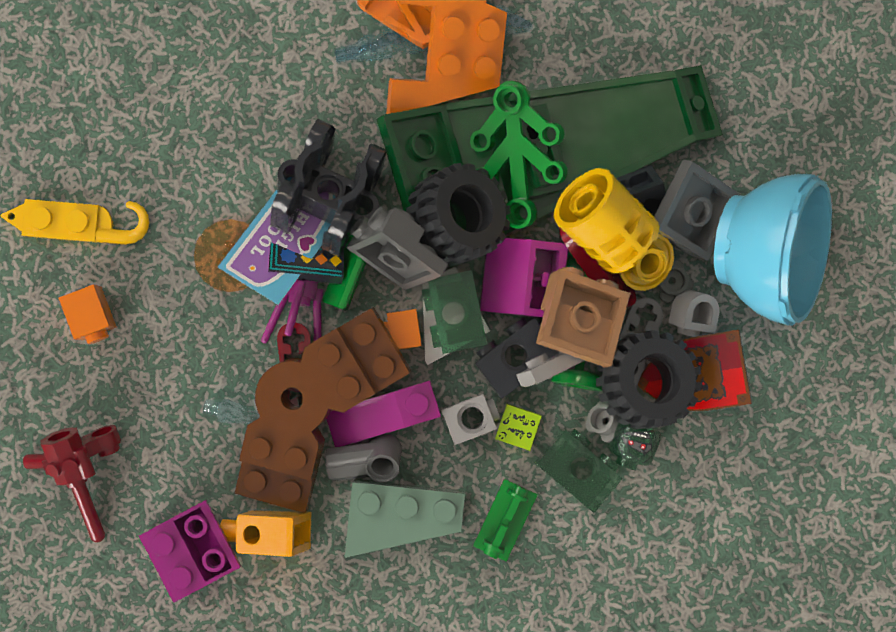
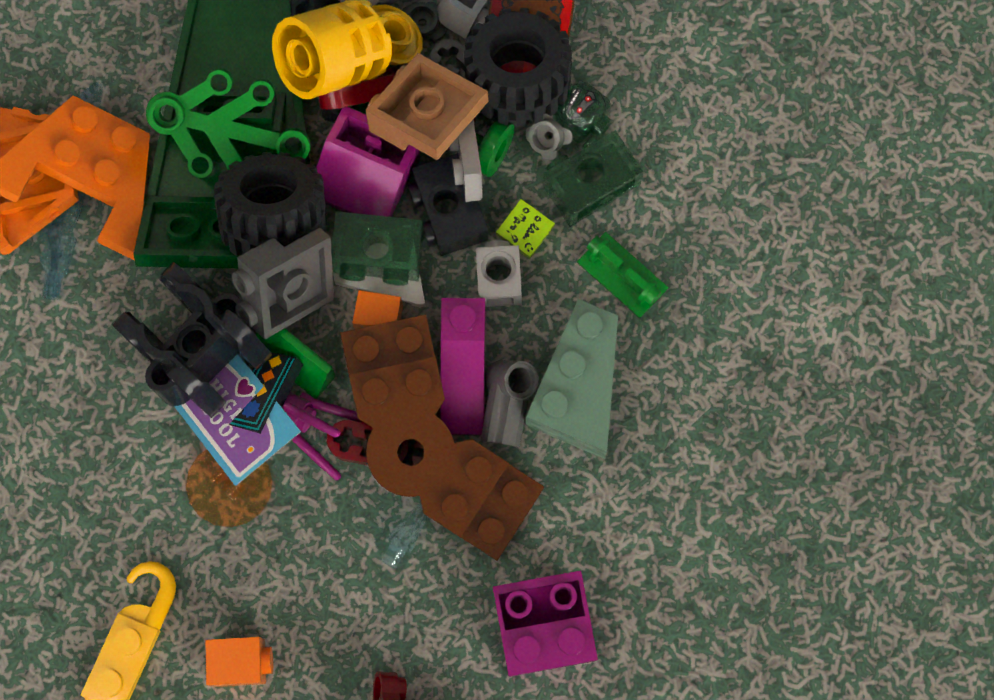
camera: 70 degrees left, 10 degrees down
(279, 535) = (555, 513): light orange torso -> none

